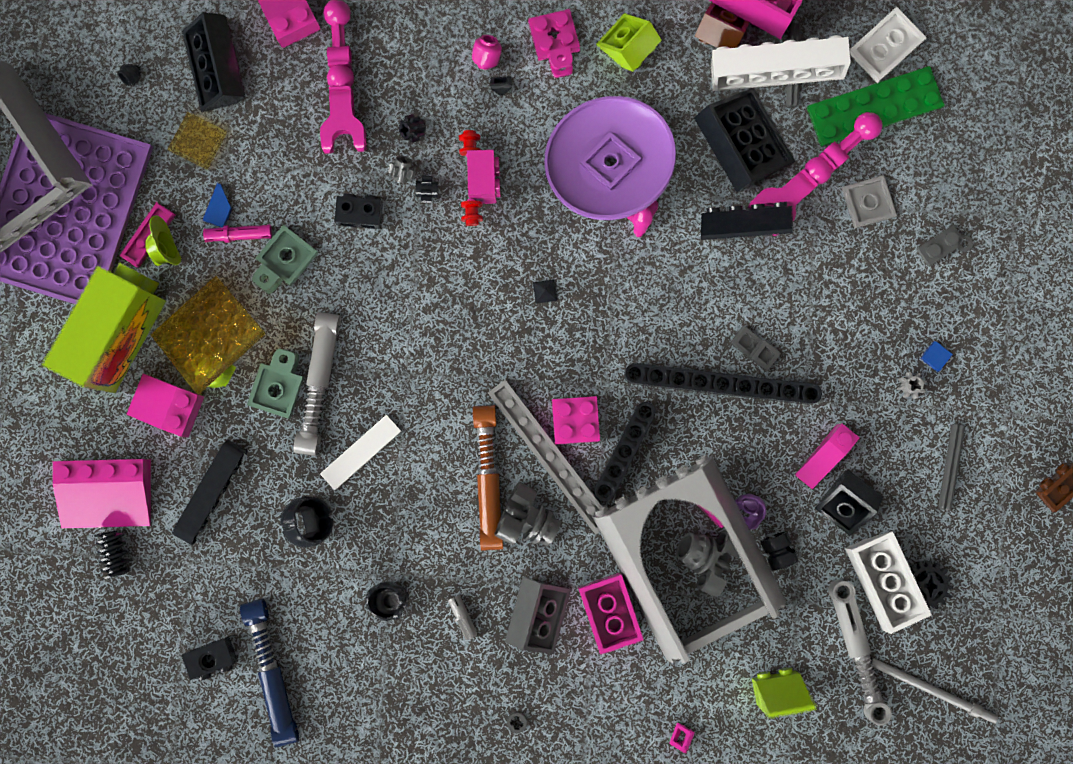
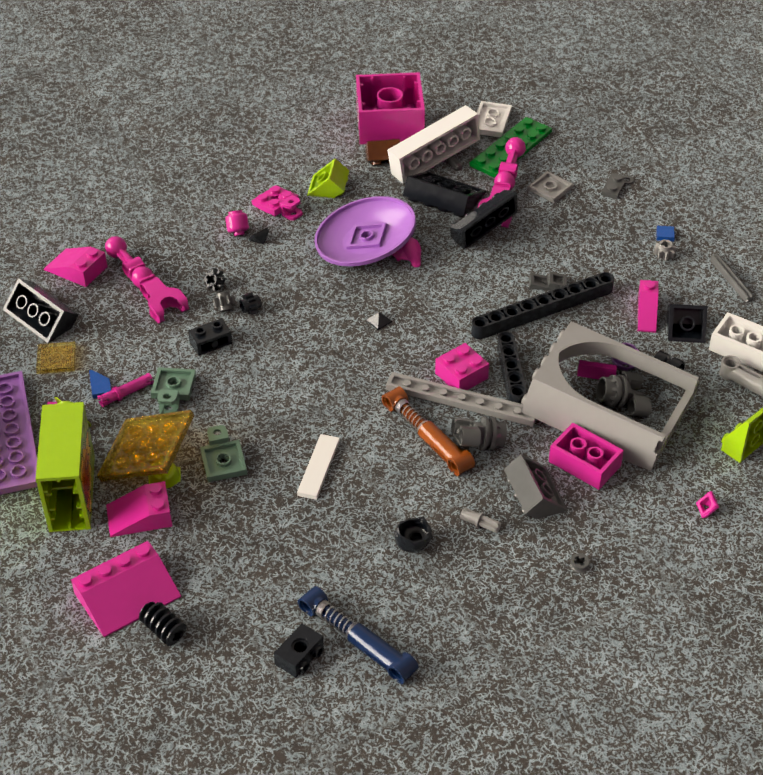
camera: 30 degrees left, 40 degrees down
(208, 492) = (216, 546): black beam -> none
(315, 518) = (309, 516): black piece -> none
(318, 379) = (270, 474): light grey piece -> none
(482, 180) = (283, 276): dark pink brick -> none

